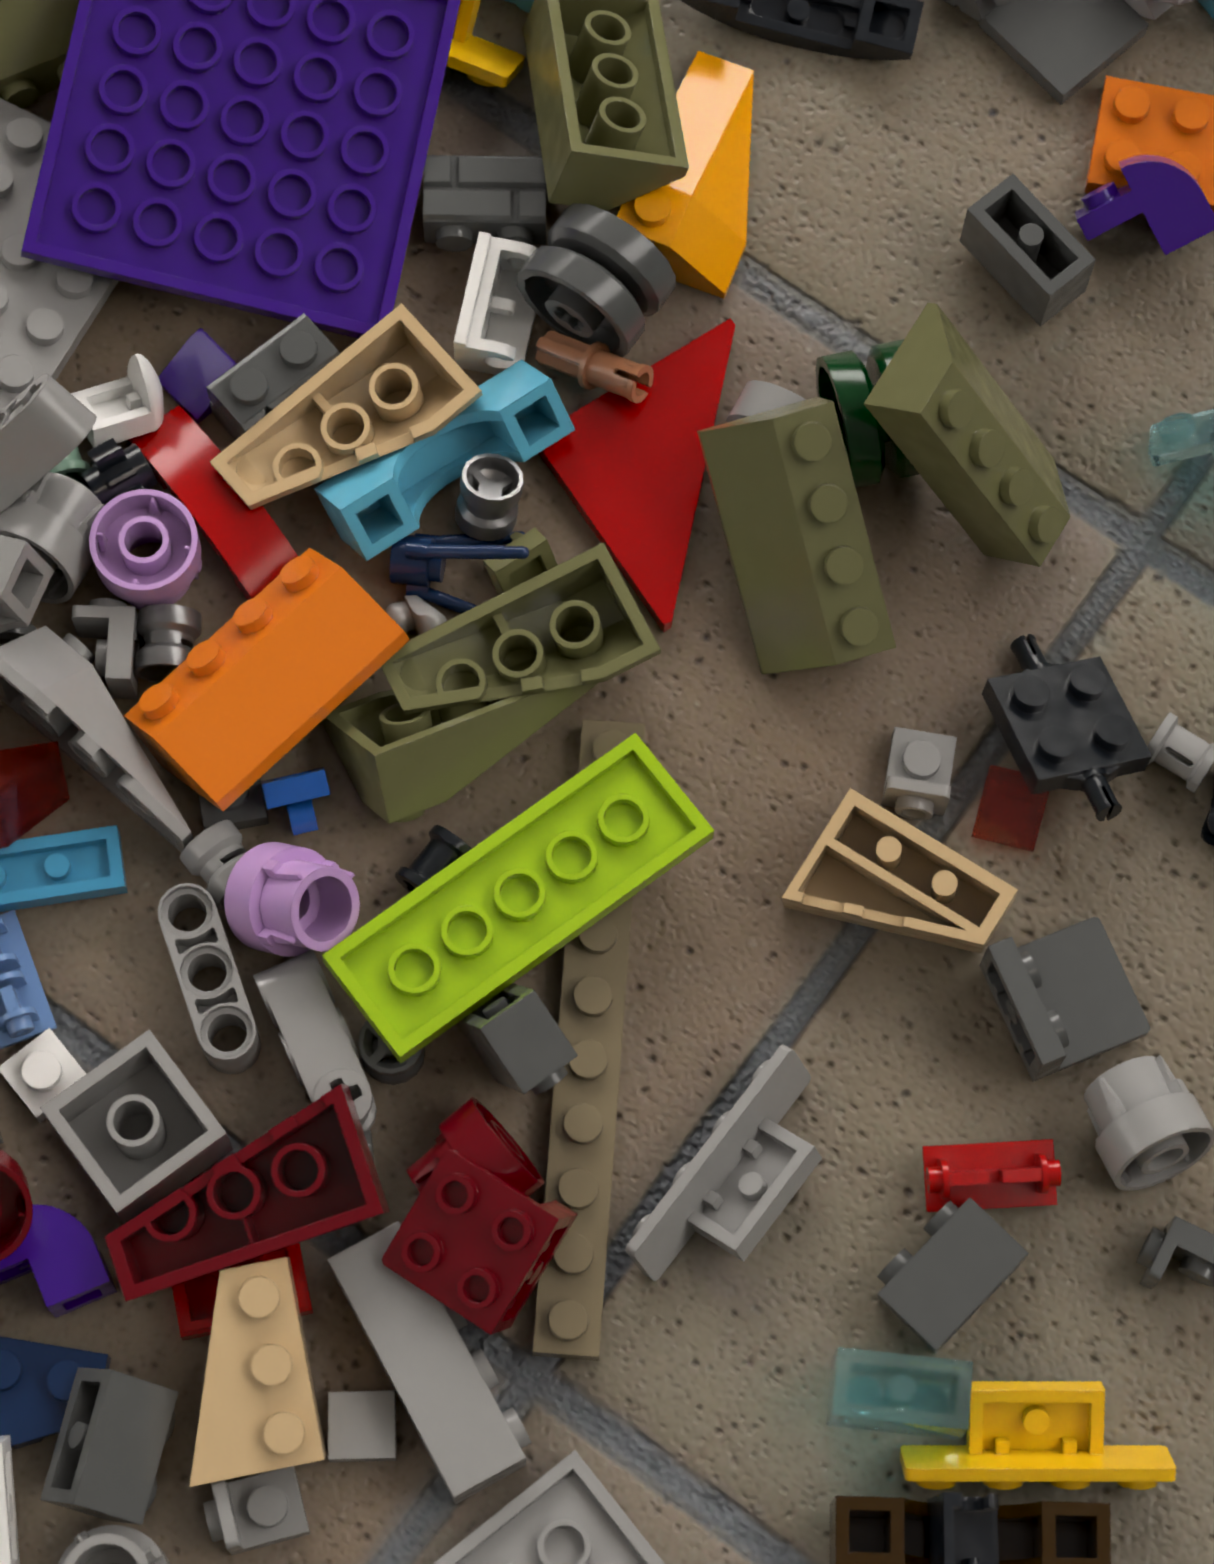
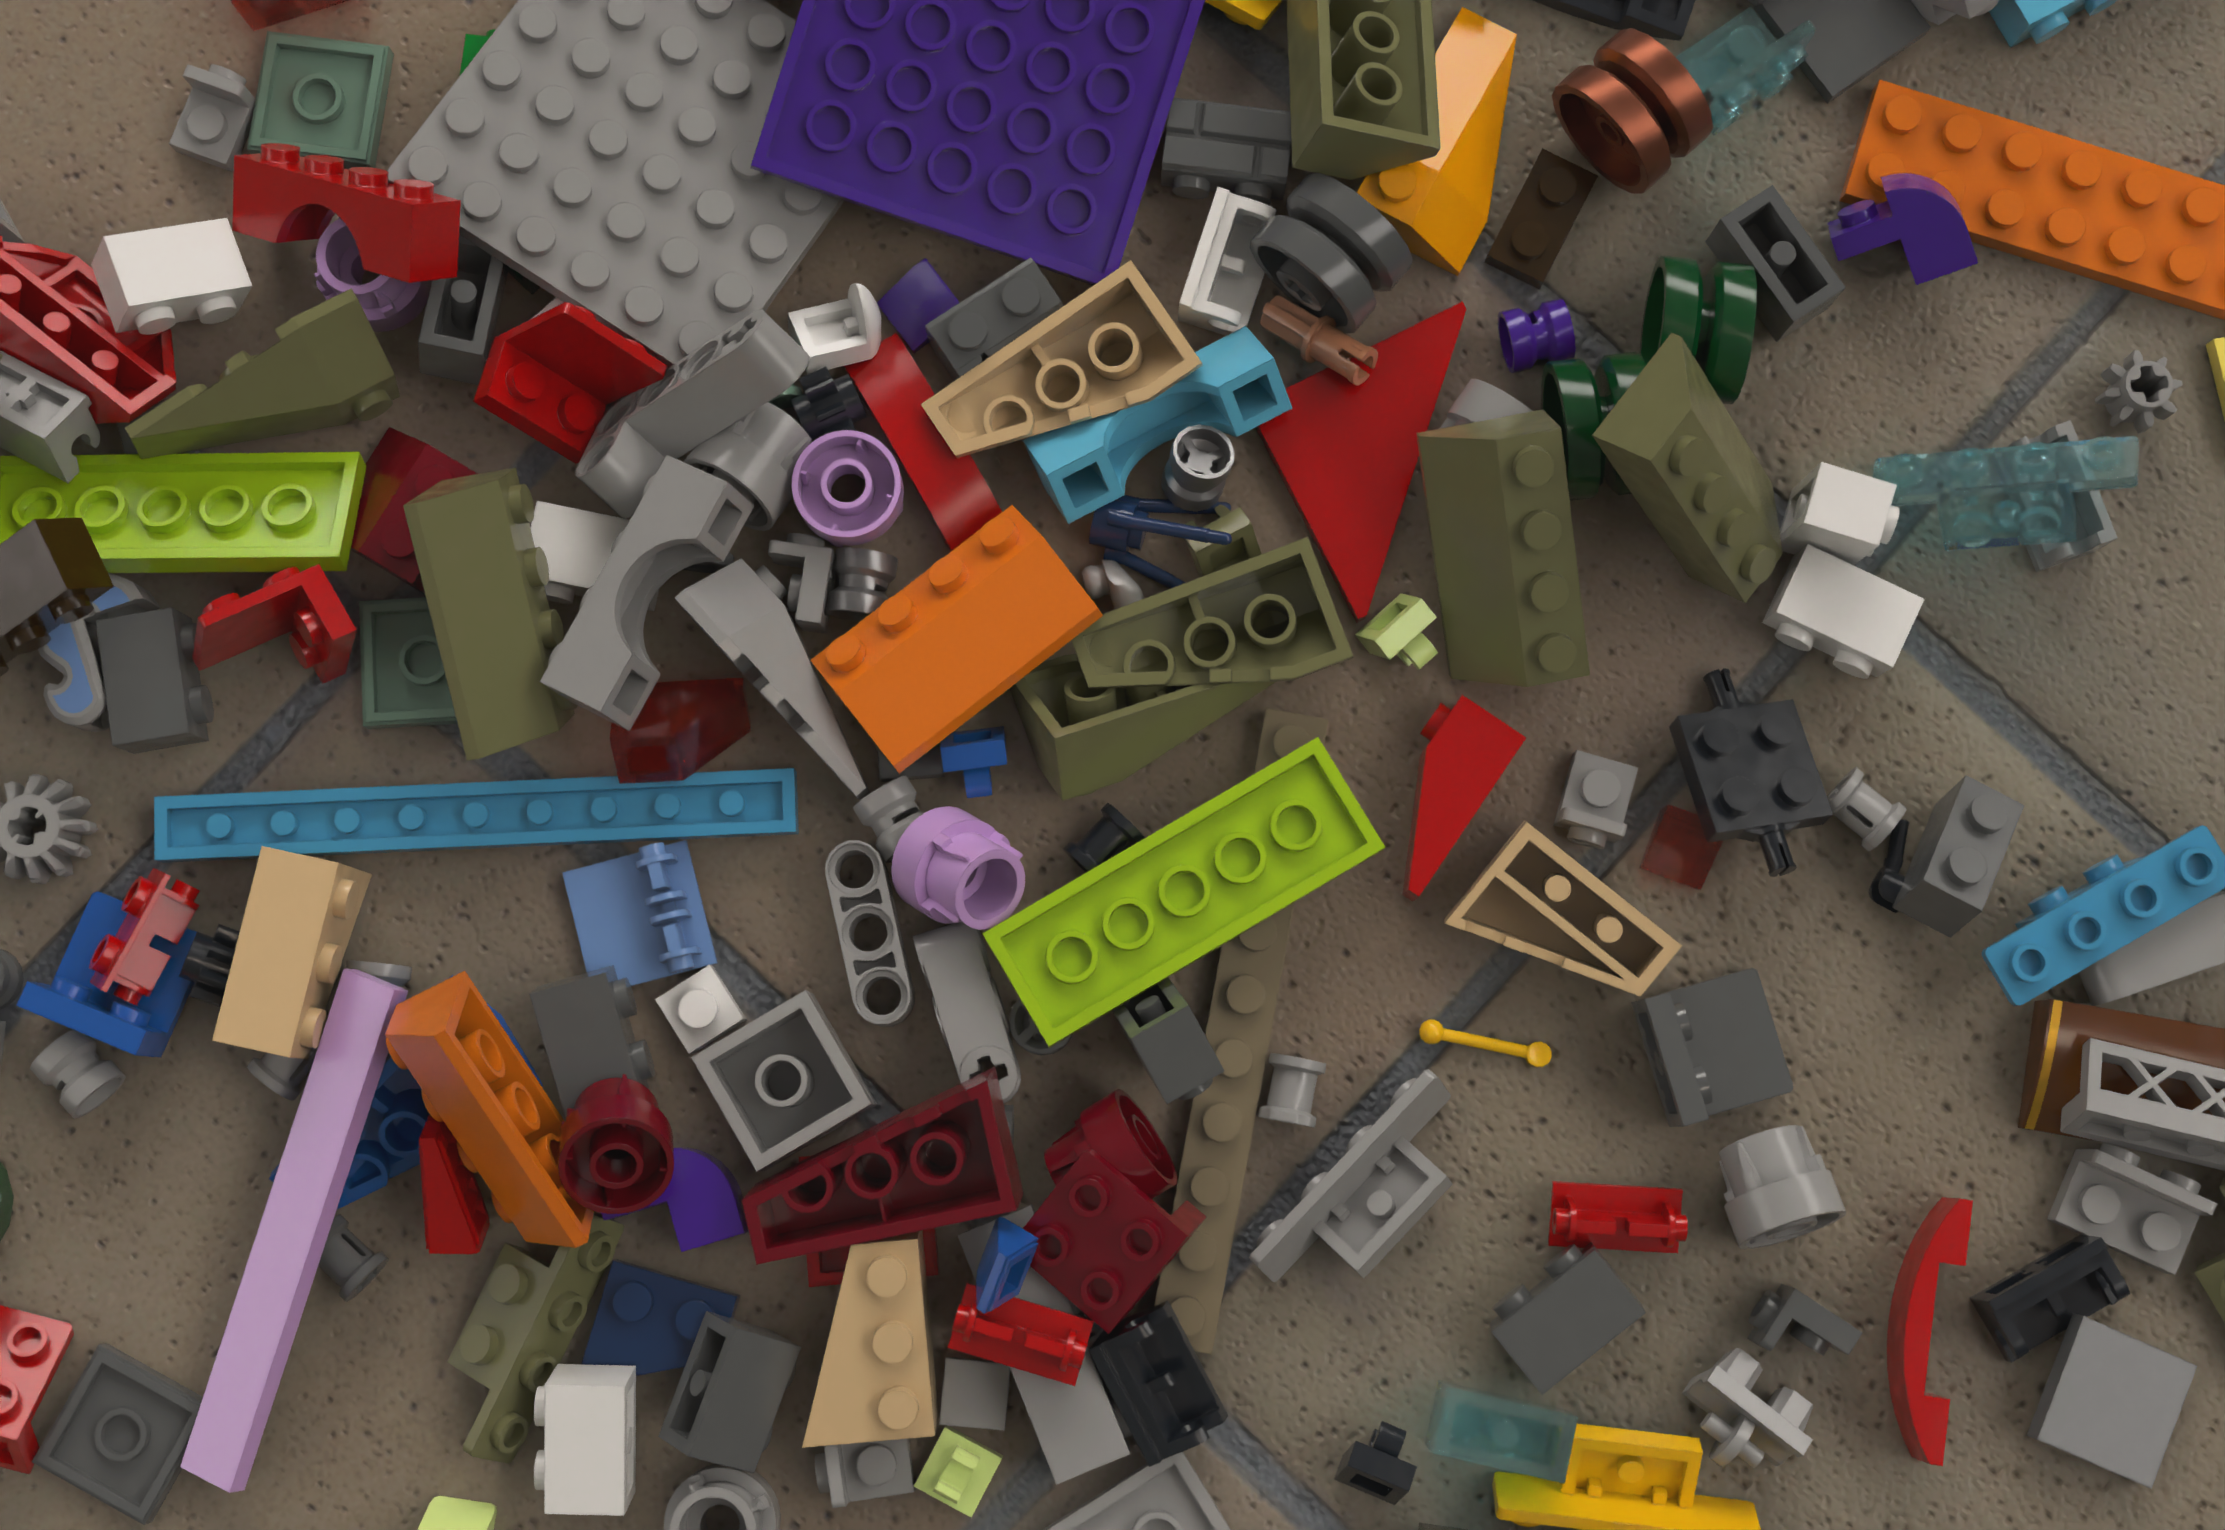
camera: 10 degrees right, 10 degrees up
(352, 1507) = (958, 1471): none -> yellowish green tile
(378, 1273) = (1003, 1264): none -> blue slope
(400, 1346) = (1022, 1336): none -> red hinge
(547, 1386) = (1158, 1383): none -> black hinge
(650, 1085) = (1292, 1090): none -> light grey bush
(706, 632) = (1399, 631): none -> yellowish green tile
(778, 1448) = (1376, 1466): none -> black tile
(779, 757) = (1454, 777): none -> red slope
(797, 236) = (1541, 219): none -> dark brown plate
(804, 341) = (1536, 335): none -> dark purple wheel
(871, 122) = (1632, 110): none -> copper wheel
(891, 1027) = (1536, 1053): none -> yellow hinge
(960, 82) = (1744, 62): none -> clear light blue bracket
(976, 307) = (1709, 315): none -> dark green wheel
(1119, 474) = (1839, 513): none -> white brick
(1136, 568) = (1842, 613): none -> white brick
(1145, 1357) = (1743, 1421): none -> light grey hips

